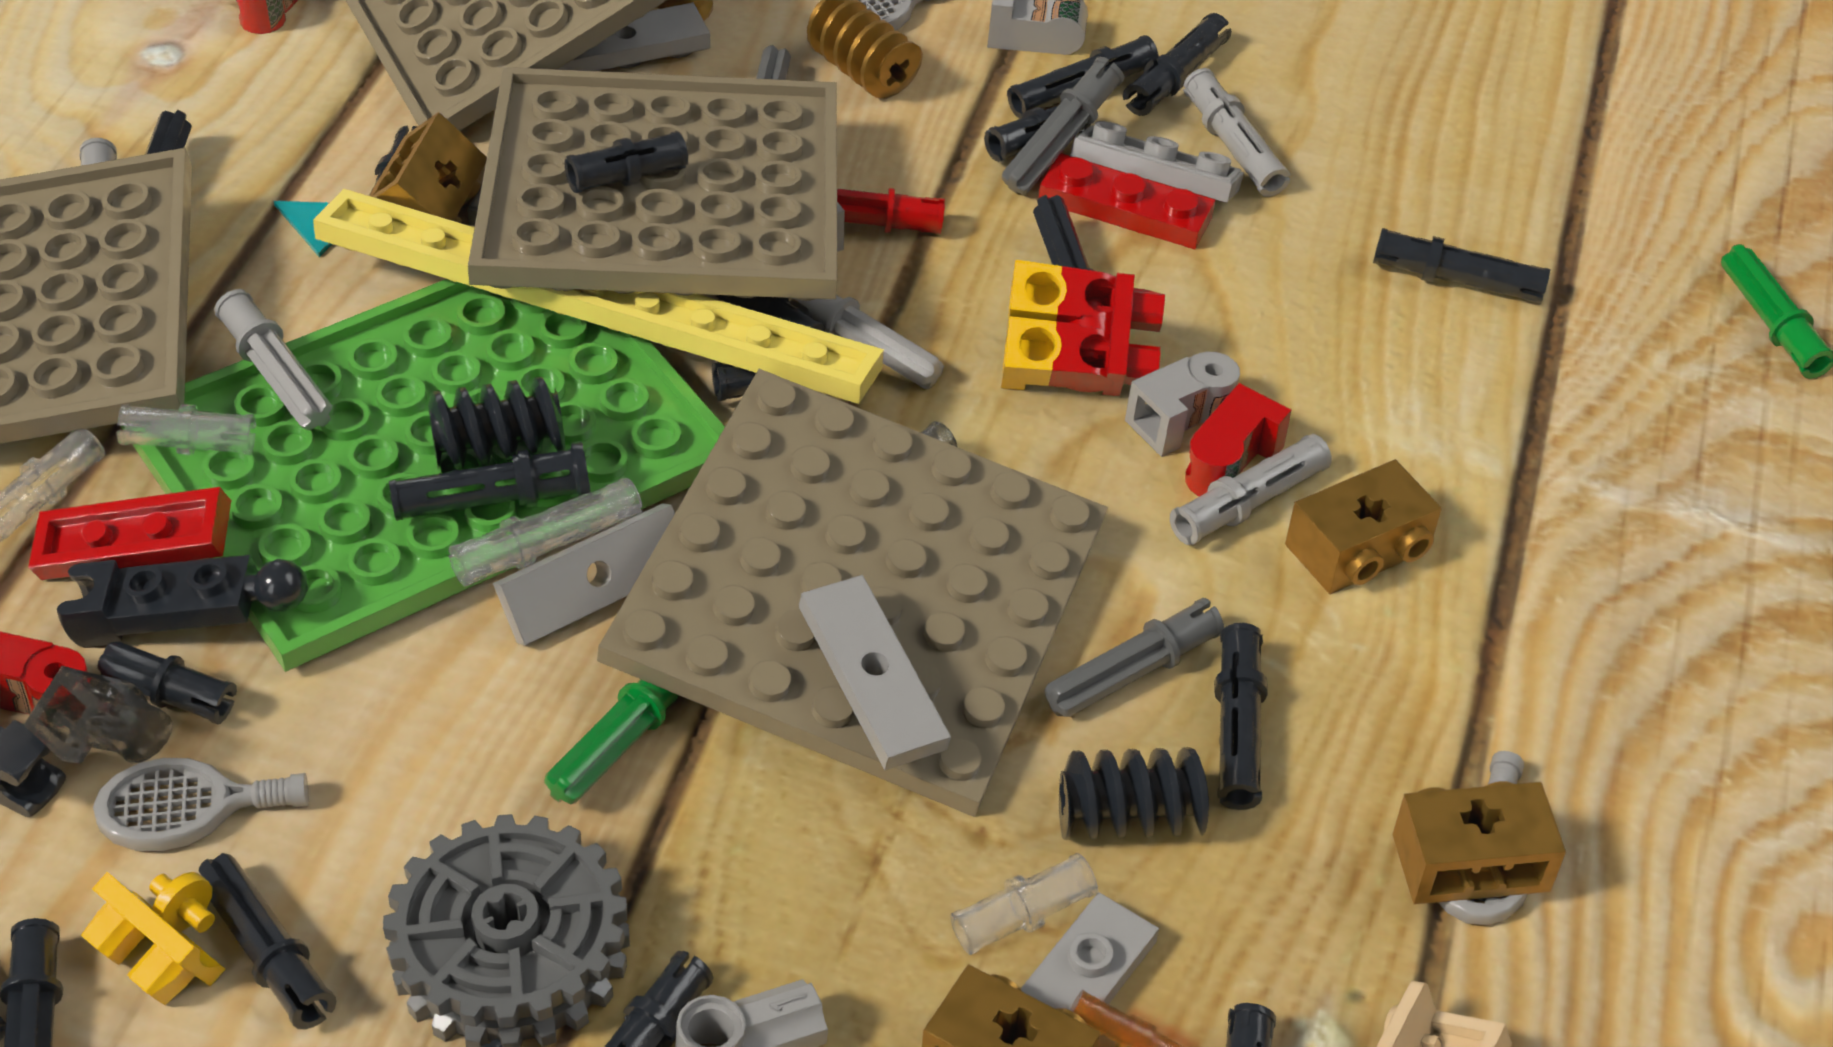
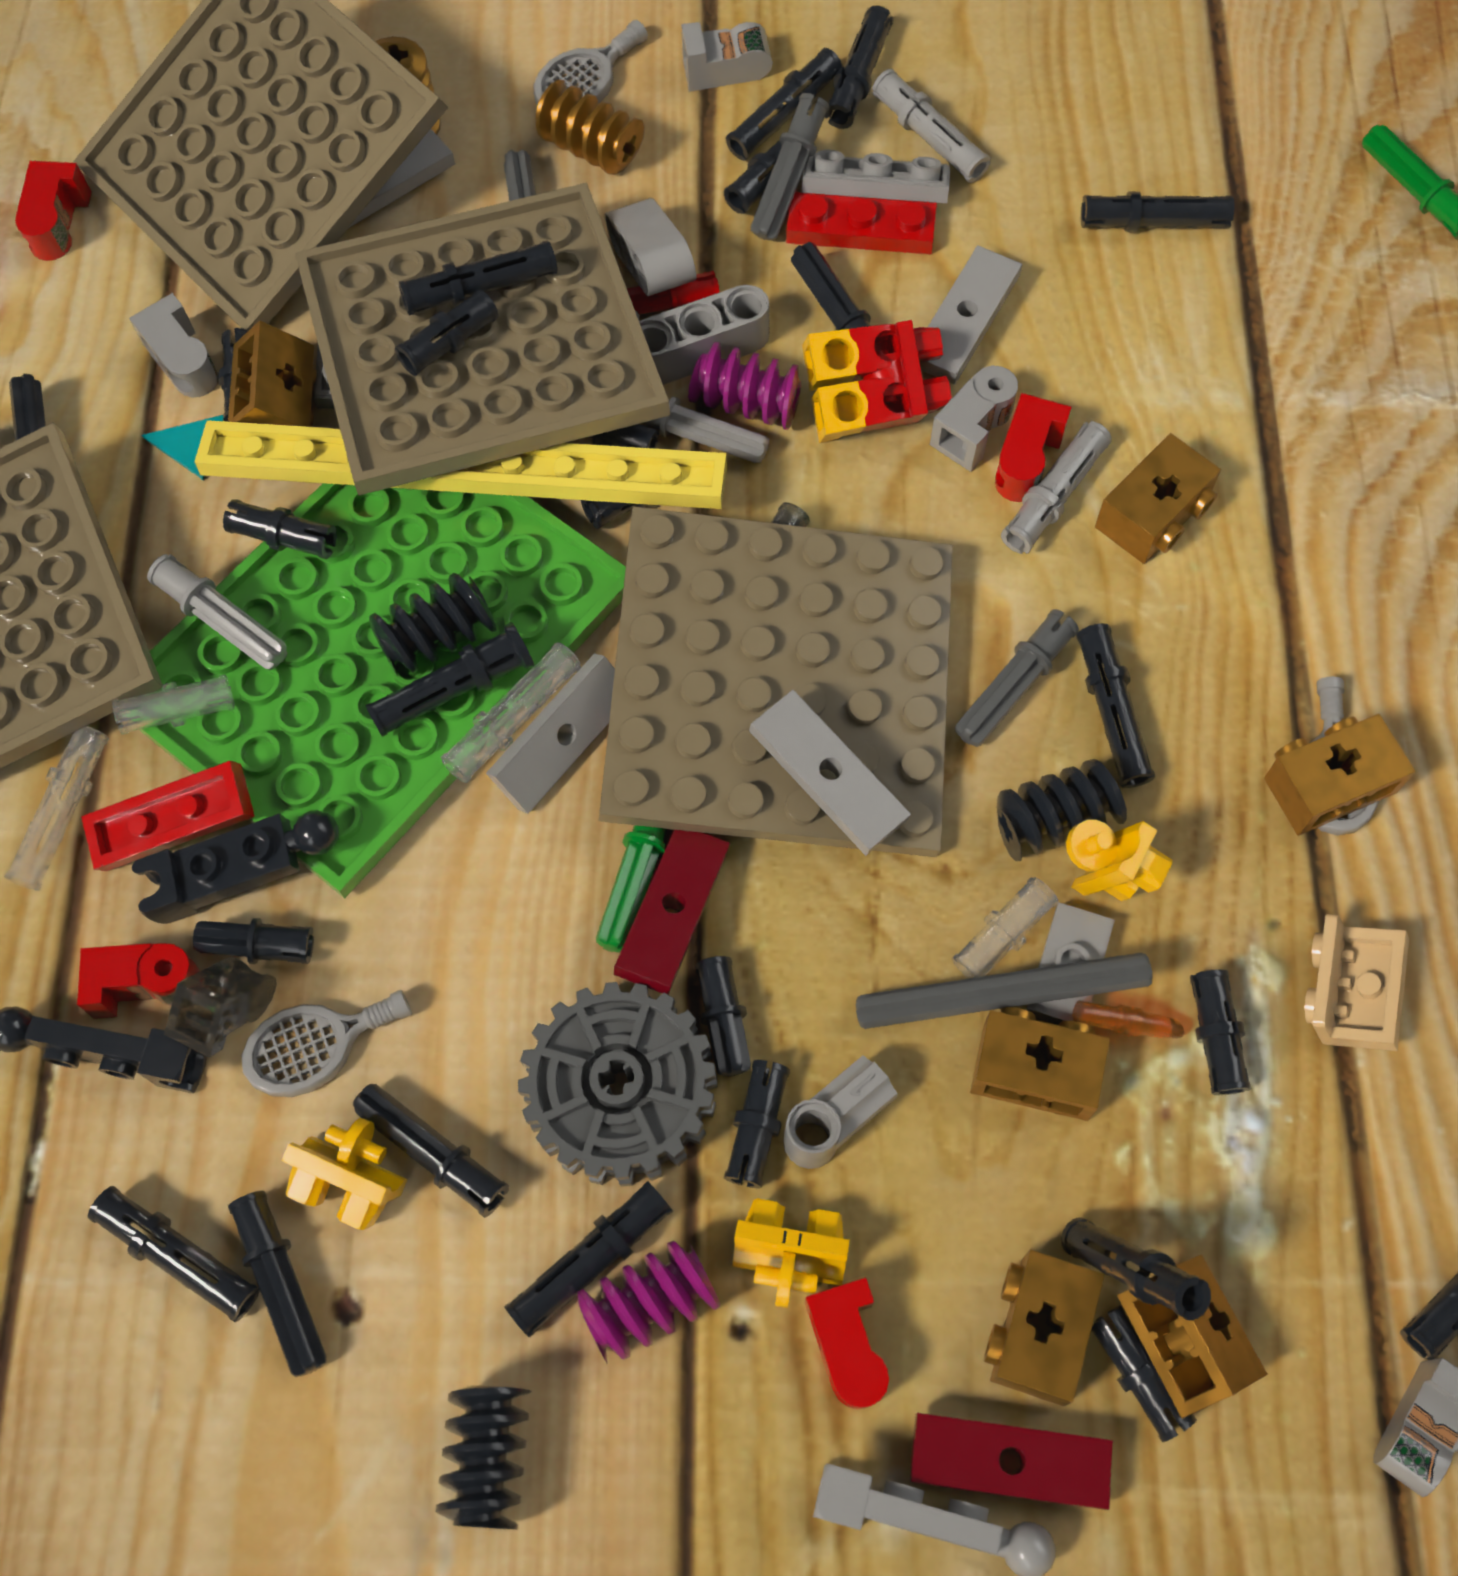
camera: 10 degrees left, 20 degrees up
(345, 129) = (166, 336): none -> light grey leg
(375, 304) = (280, 528): none -> black pin
(642, 771) = (681, 883): none -> dark red tile
(659, 899) = (723, 1015): none -> black axle
(694, 124) = (460, 282): none -> black pin
(882, 157) = (650, 246): none -> light grey beam
(911, 252) = (683, 334): none -> light grey beam
(935, 308) = (746, 385): none -> magenta piece
(1011, 957) = (1004, 990): none -> dark grey axle
(1181, 861) = (1116, 860): none -> yellow hips
(1213, 303) = (971, 310): none -> light grey tile

